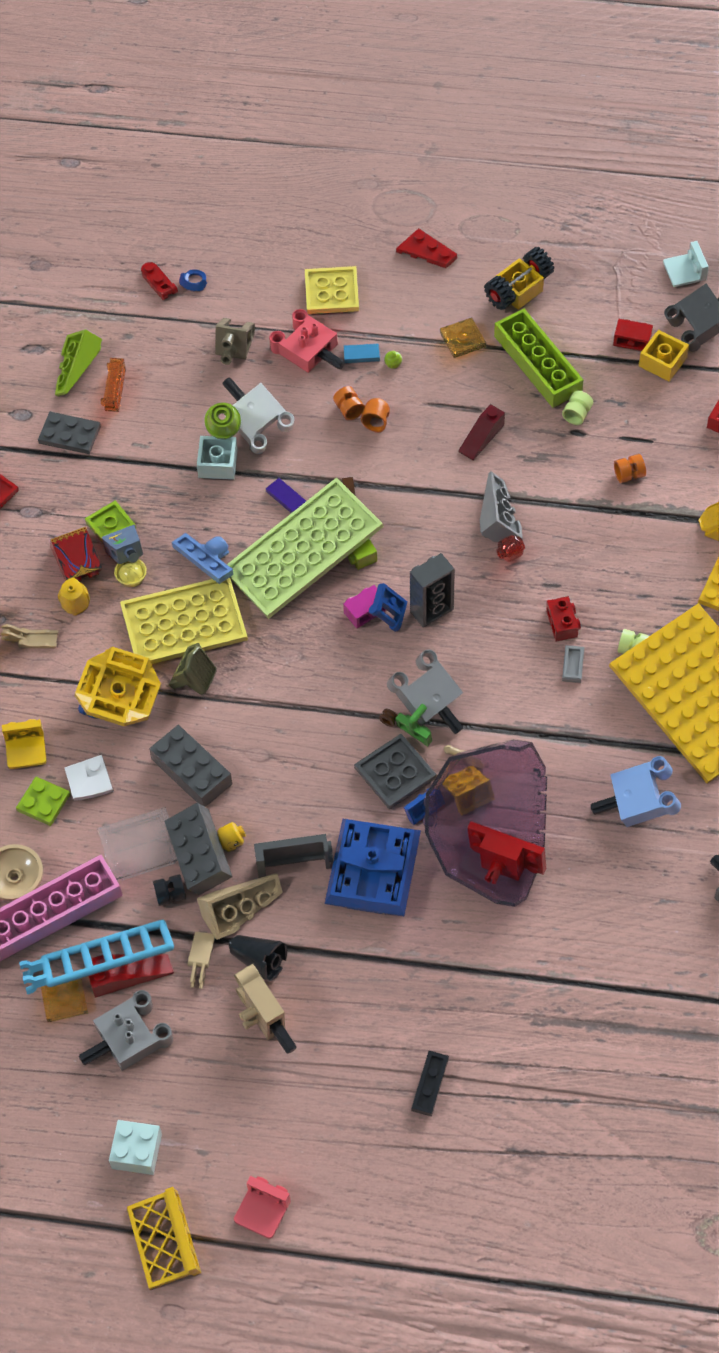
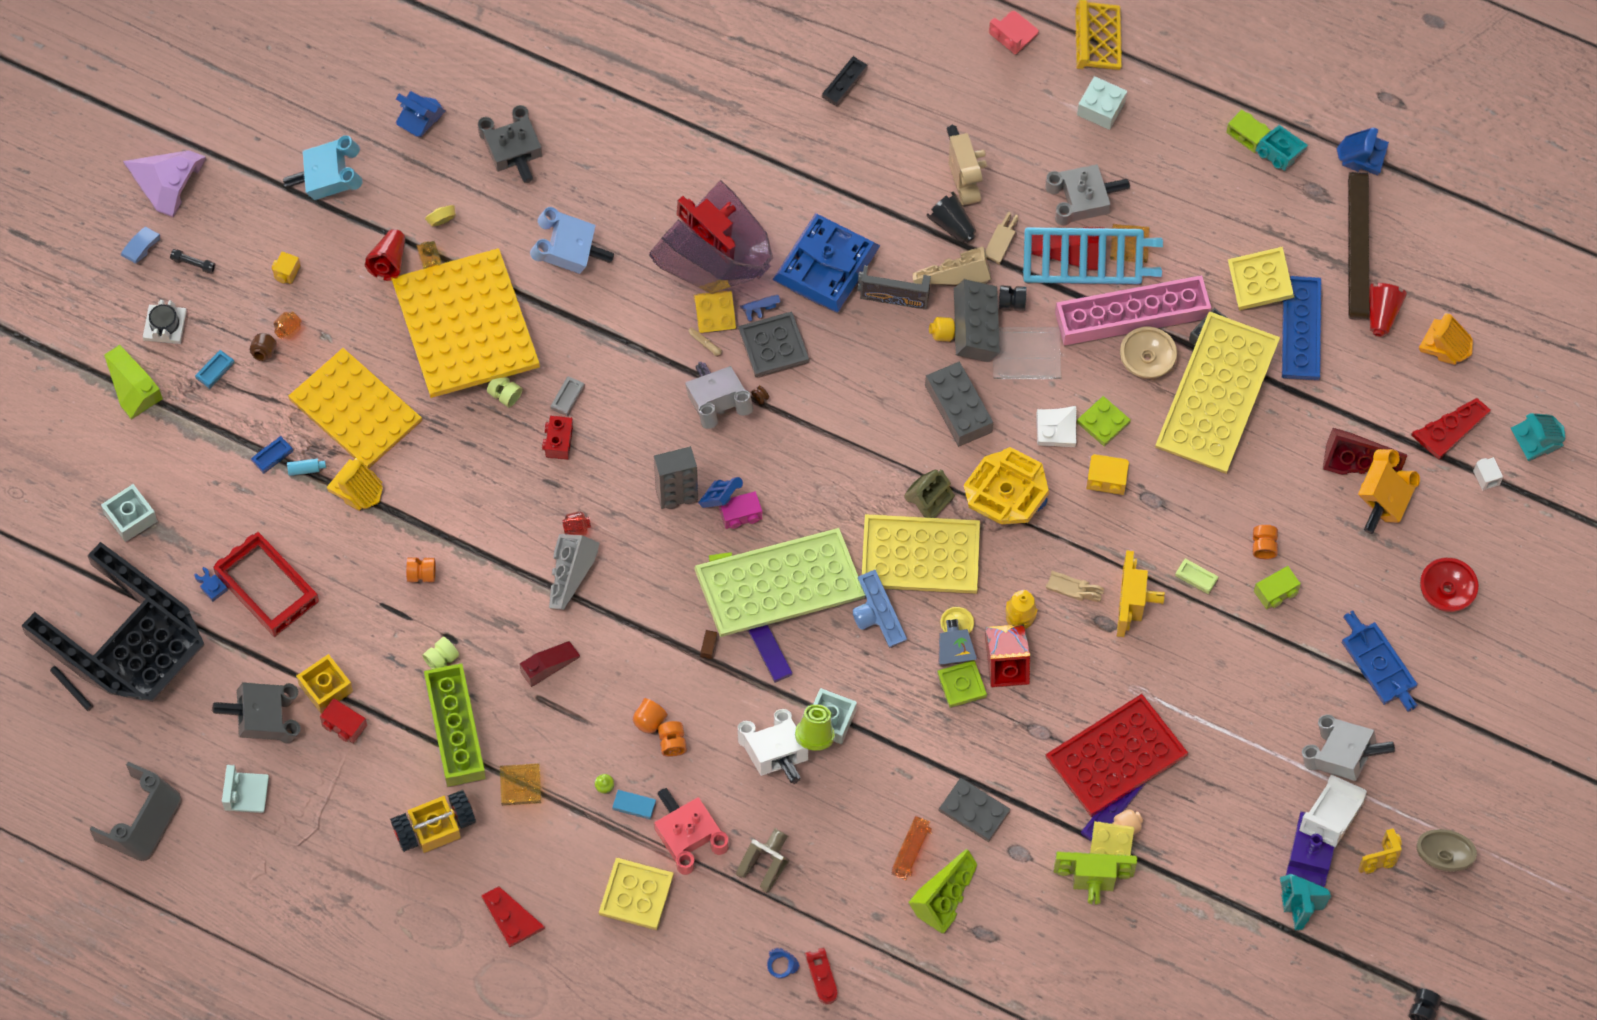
camera: 165 degrees left, 5 degrees up
(410, 725) = (740, 369): bright green plate -> none

